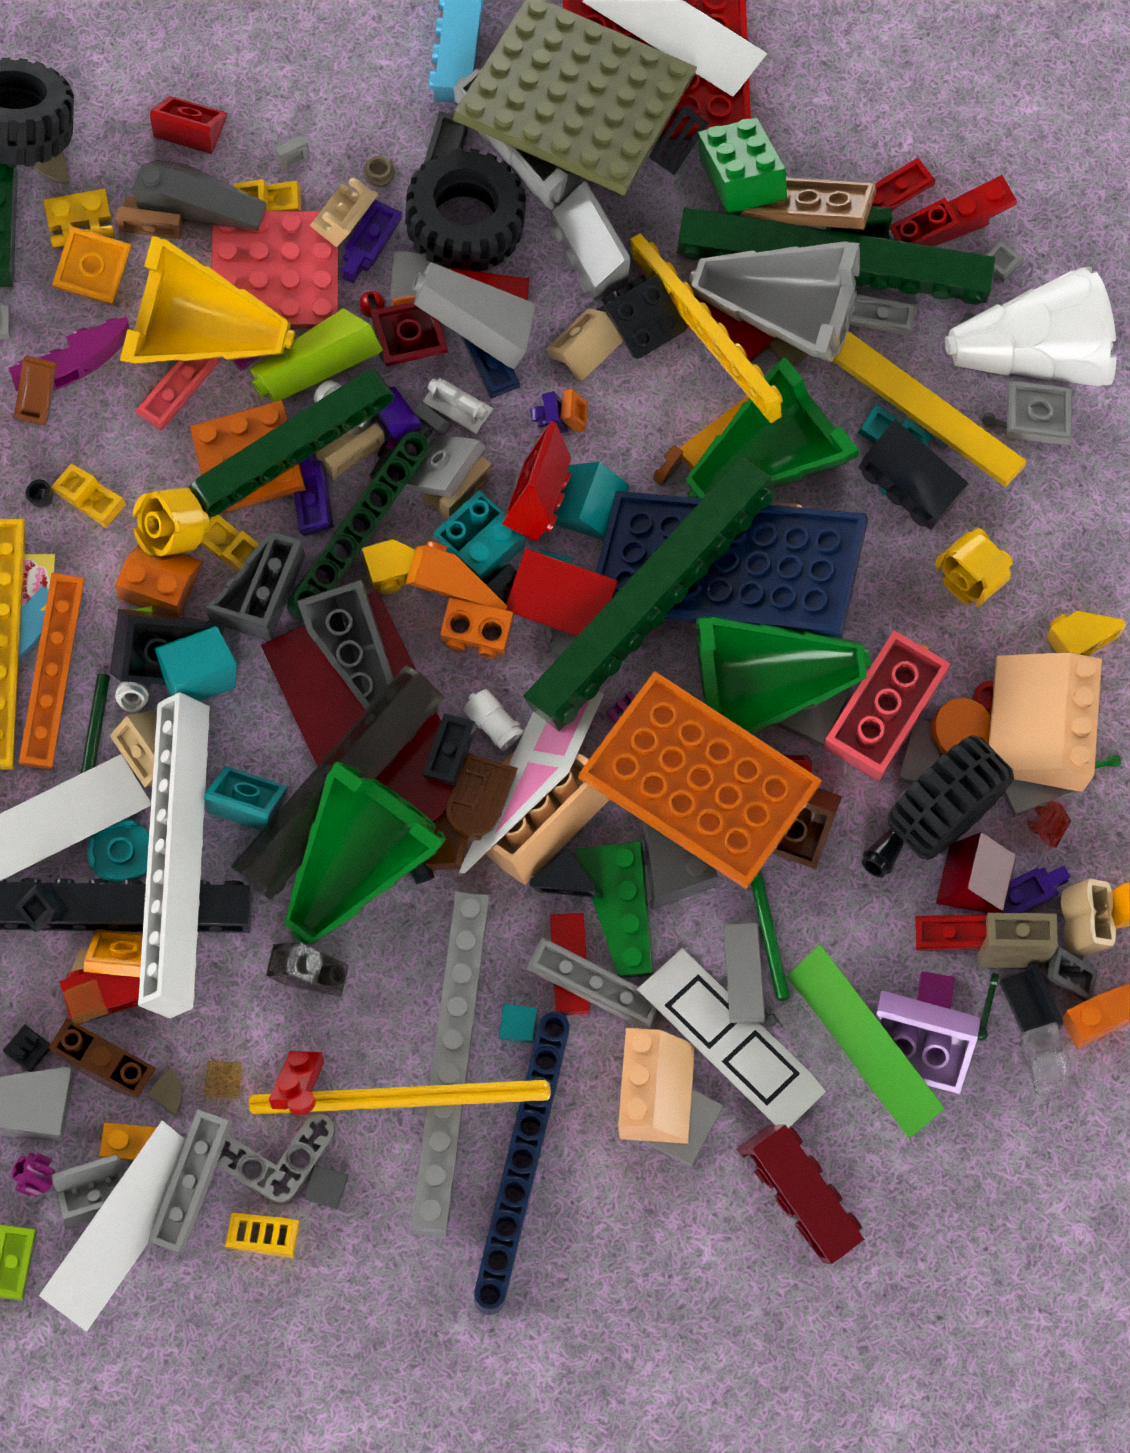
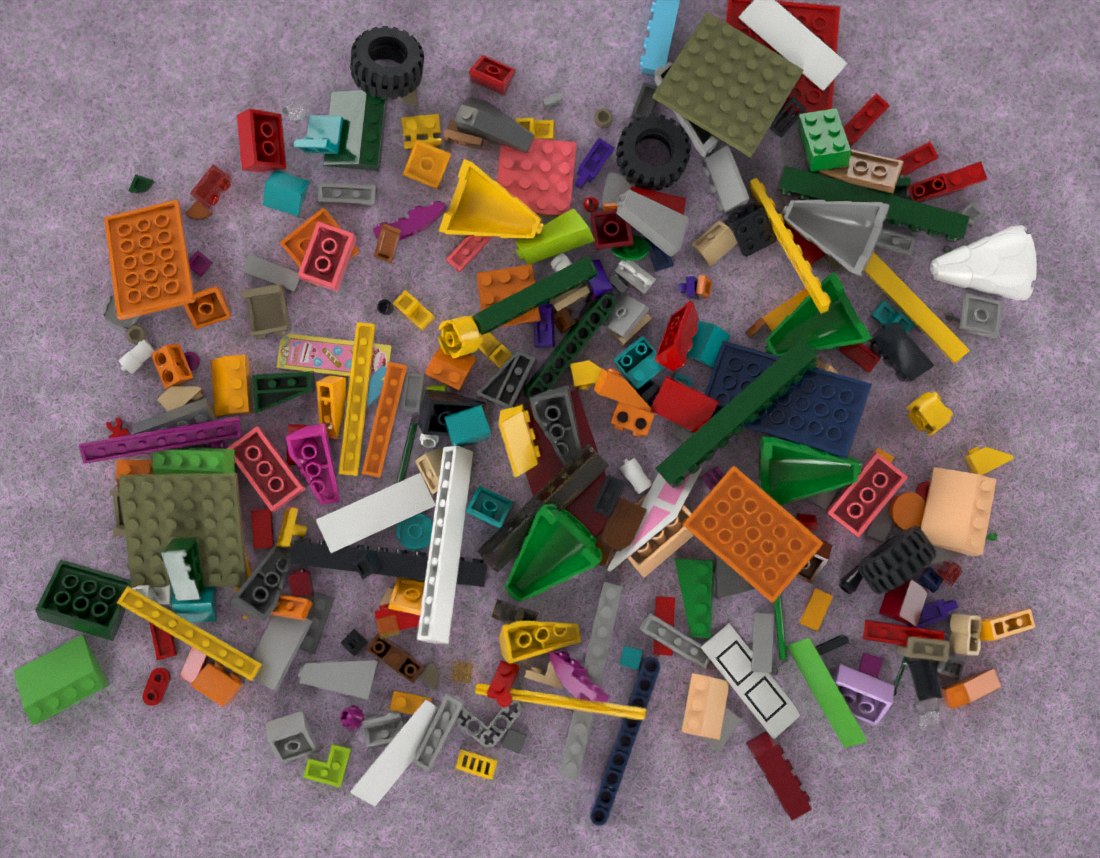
camera: 10 degrees right, 15 degrees up
(97, 625) = (412, 392): none -> light grey tile
(286, 670) = (518, 439): none -> yellow slope
(339, 1000) = (532, 638): none -> yellow wedge
(343, 211) = (579, 145): tan hinge -> none
(345, 484) = (564, 320): none -> reddish brown tile
(378, 1070) = (549, 678): none -> tan slope
(424, 1052) = (574, 678): none -> magenta slope
(448, 364) = (633, 252): none -> green dish
(566, 877) = (670, 578): black slope -> none
(808, 134) = (865, 118): none -> red tile
(829, 909) = (816, 609): none -> light orange tile
(847, 492) = (861, 356): none -> red tile
(865, 959) = (832, 644): none -> black tile
(1018, 838) = (931, 579): none -> dark blue plate

